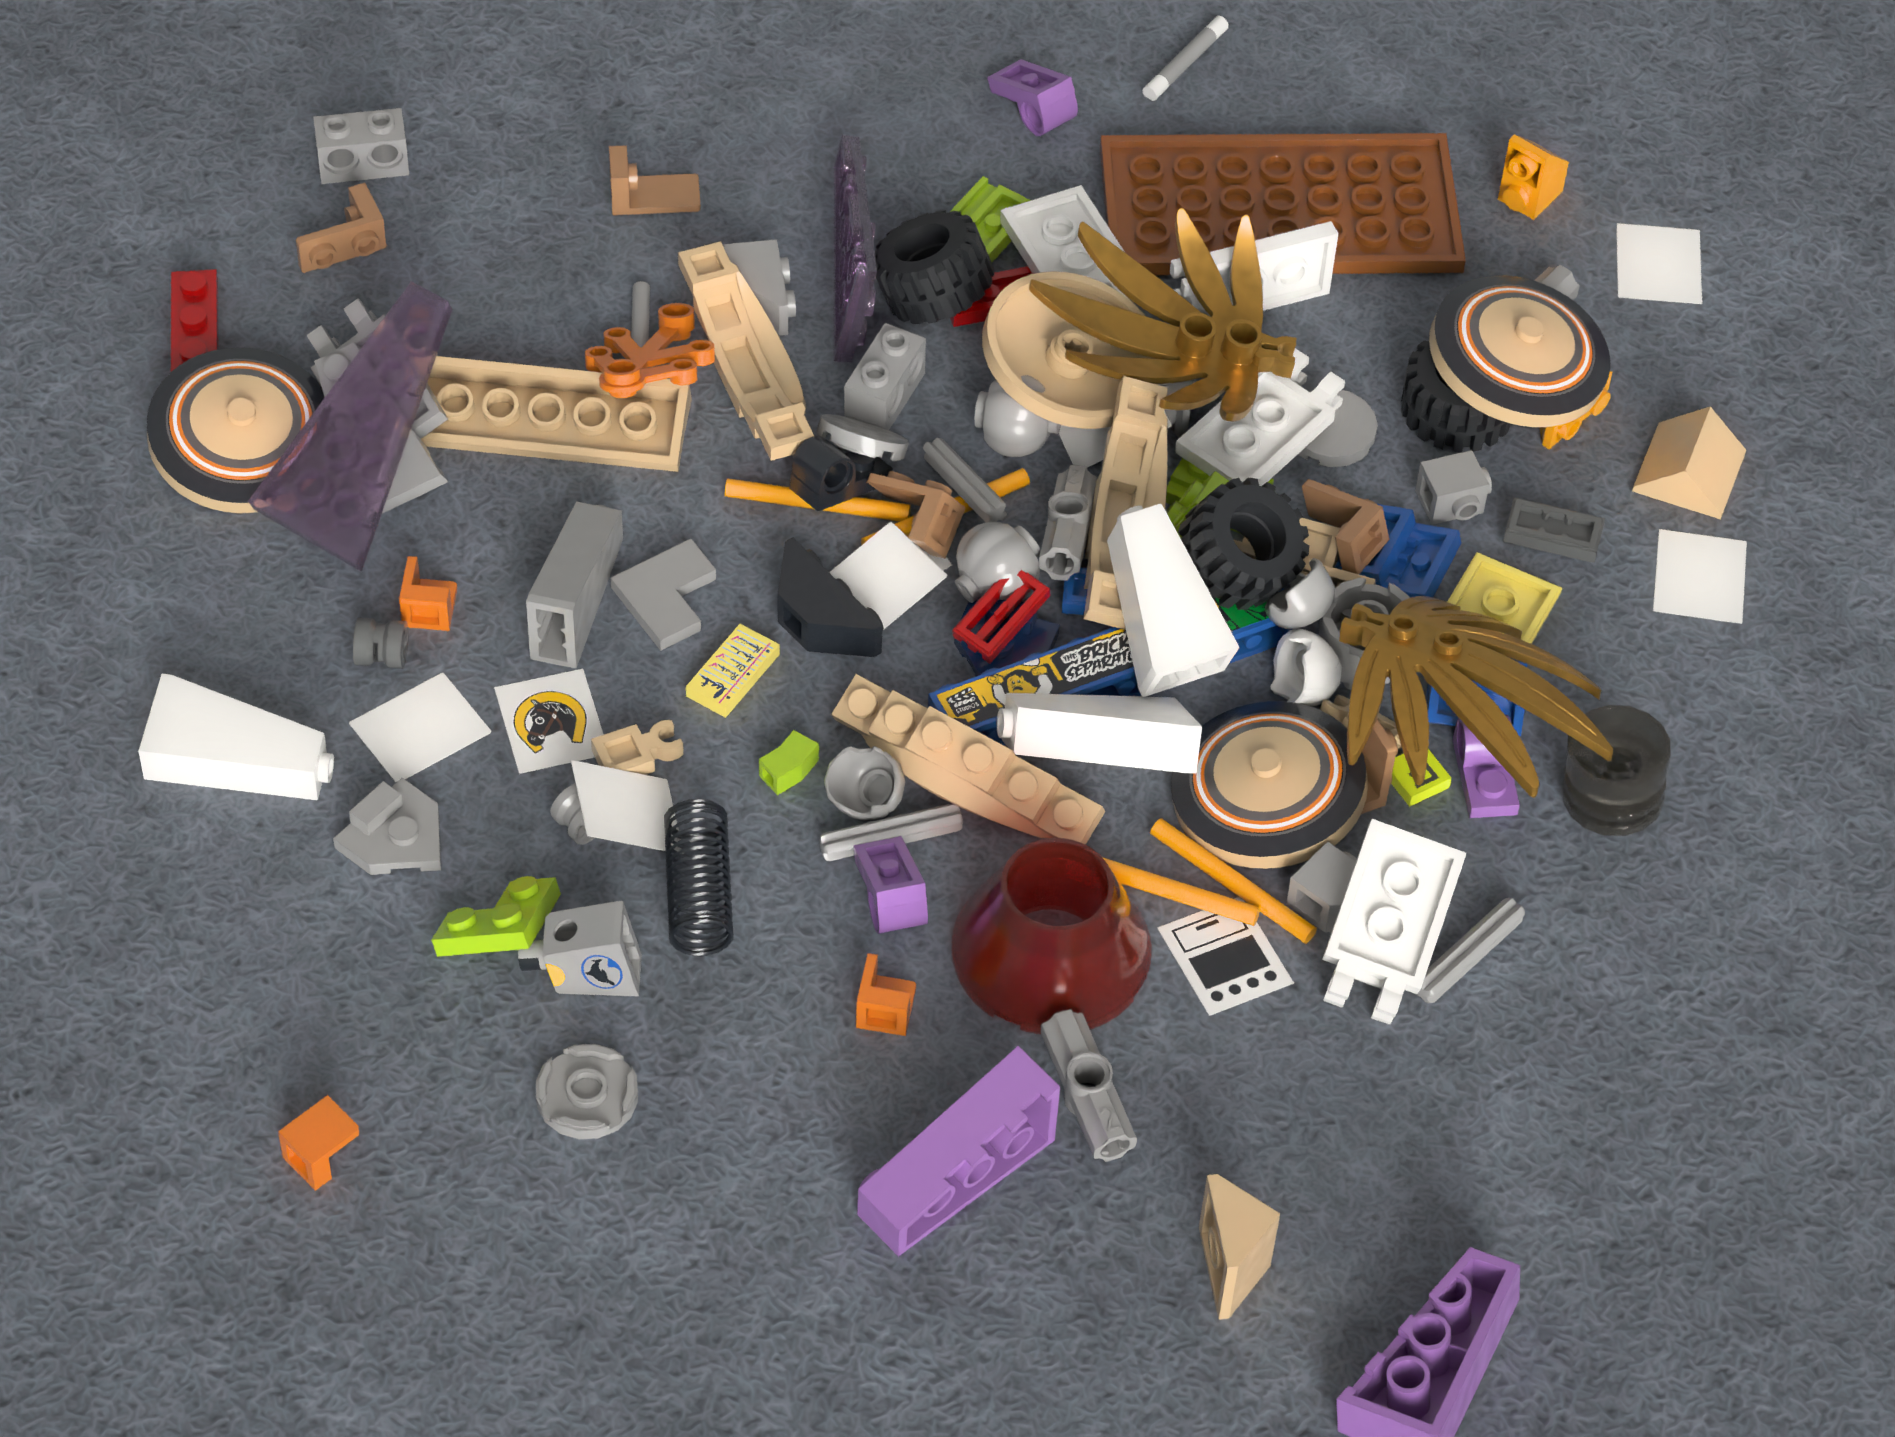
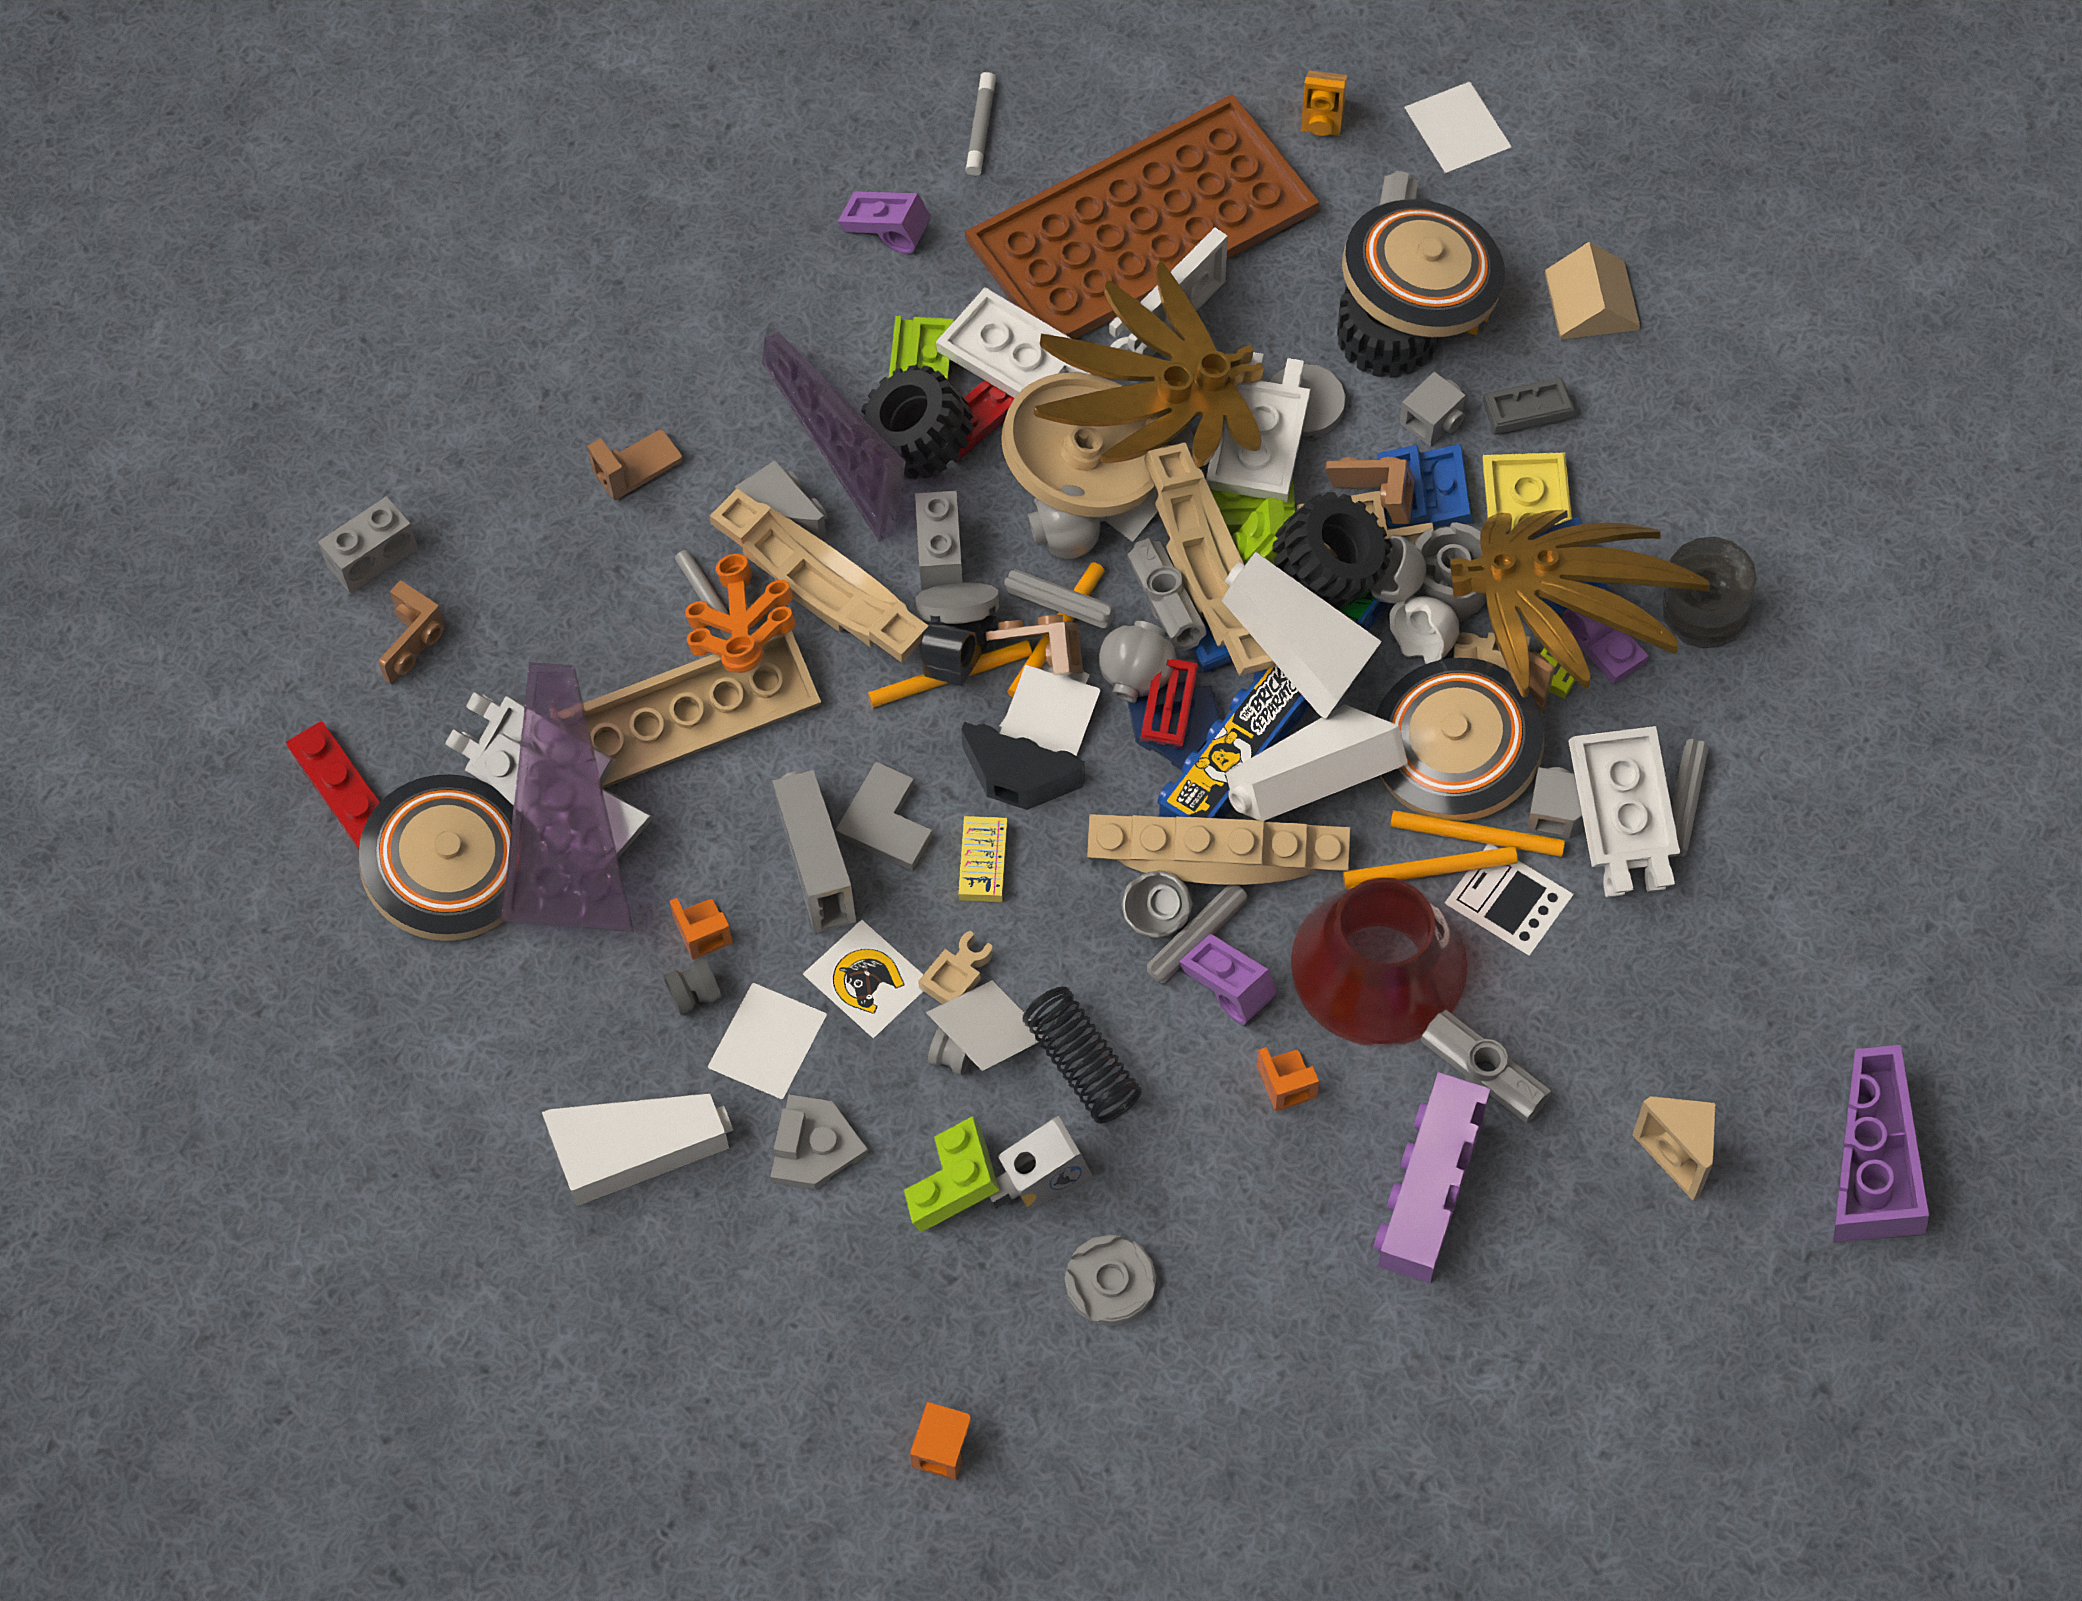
camera: 25 degrees left, 10 degrees up
(789, 762) = (1081, 916): lime piece -> none
(1700, 576) = (1654, 387): white sticker -> none

